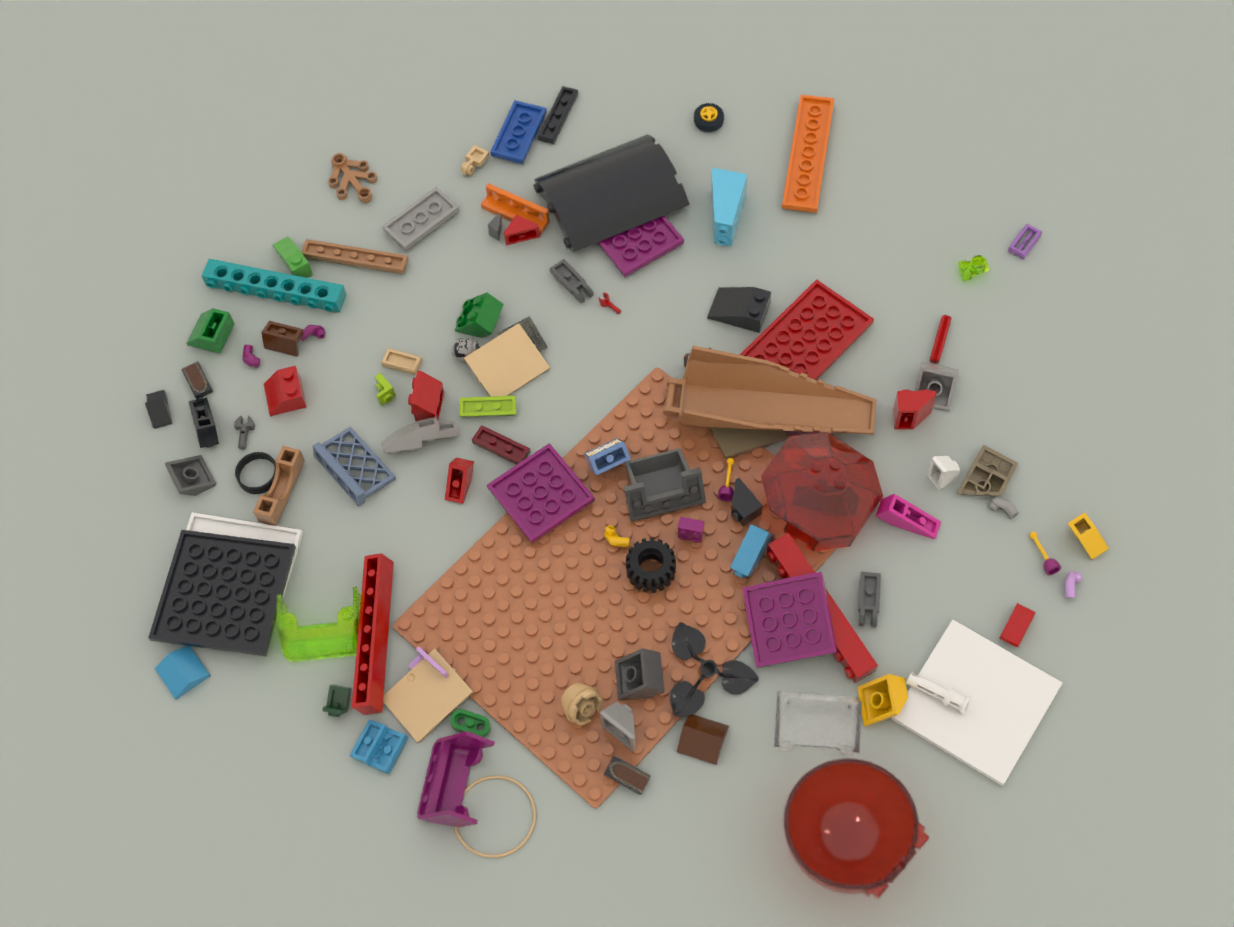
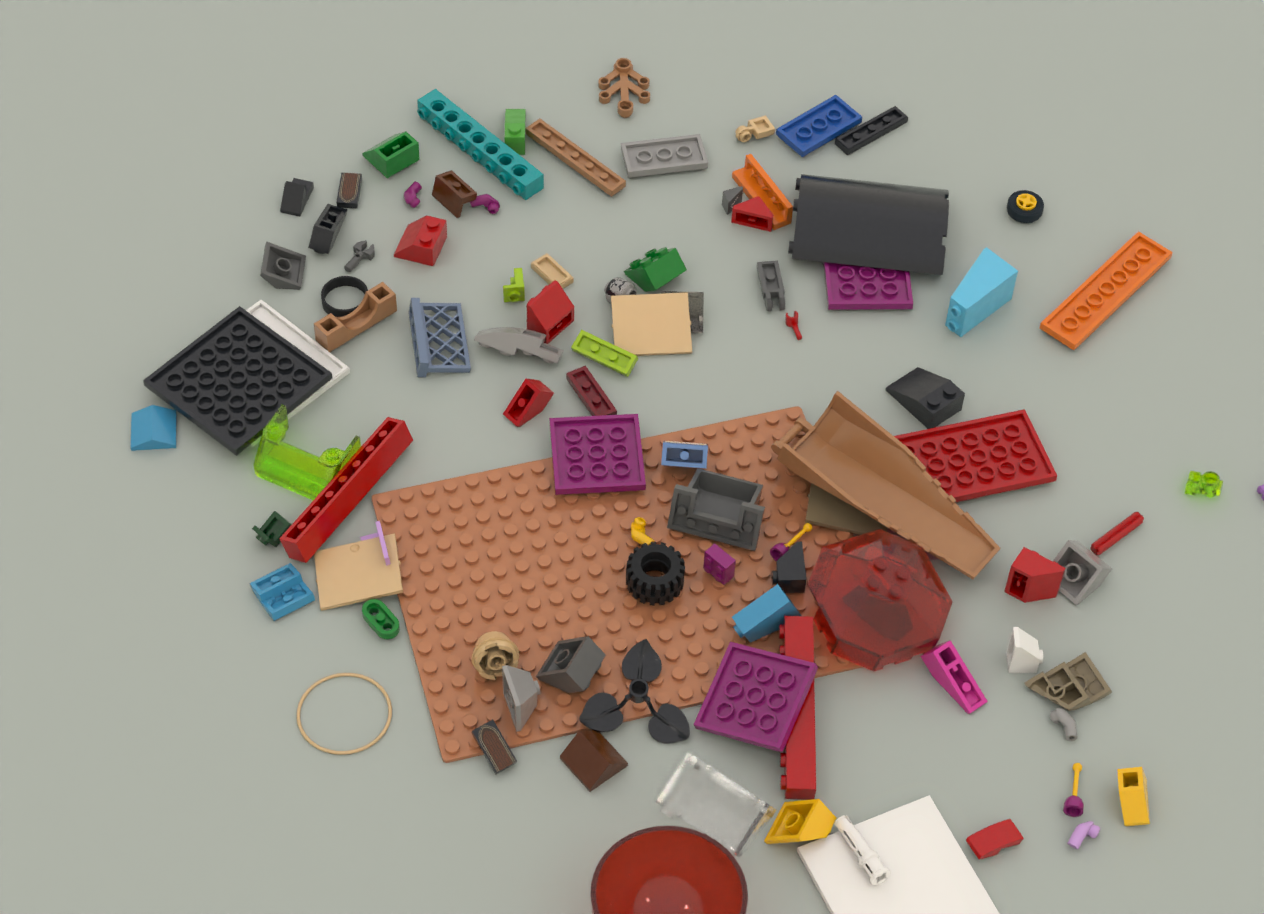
camera: 25 degrees right, 10 degrees down
(448, 778) = (327, 652): magenta windscreen -> none
(869, 596) = (857, 727): dark grey hinge -> none

